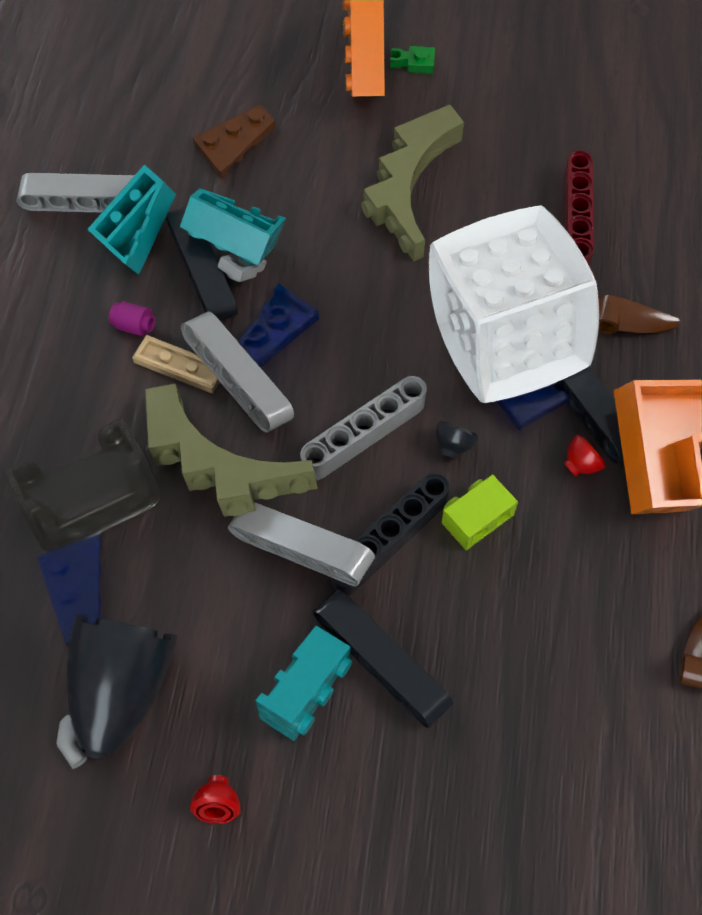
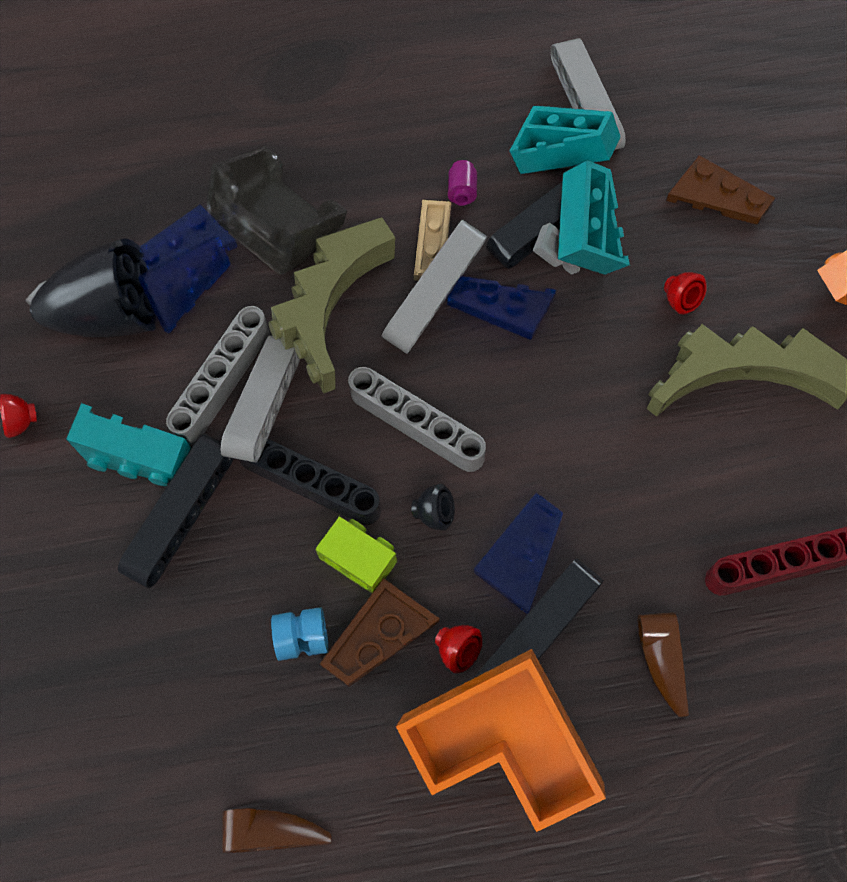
camera: 75 degrees right, 5 degrees up
(125, 591) = (181, 280): none -> clear blue wing
(244, 570) = (219, 389): none -> light grey beam
(321, 193) = (685, 291): none -> red brick
(514, 303) = (592, 500): white piece -> none
(540, 576) = (299, 633): none -> dark azure wheel
(551, 515) = (377, 633): none -> reddish brown wing

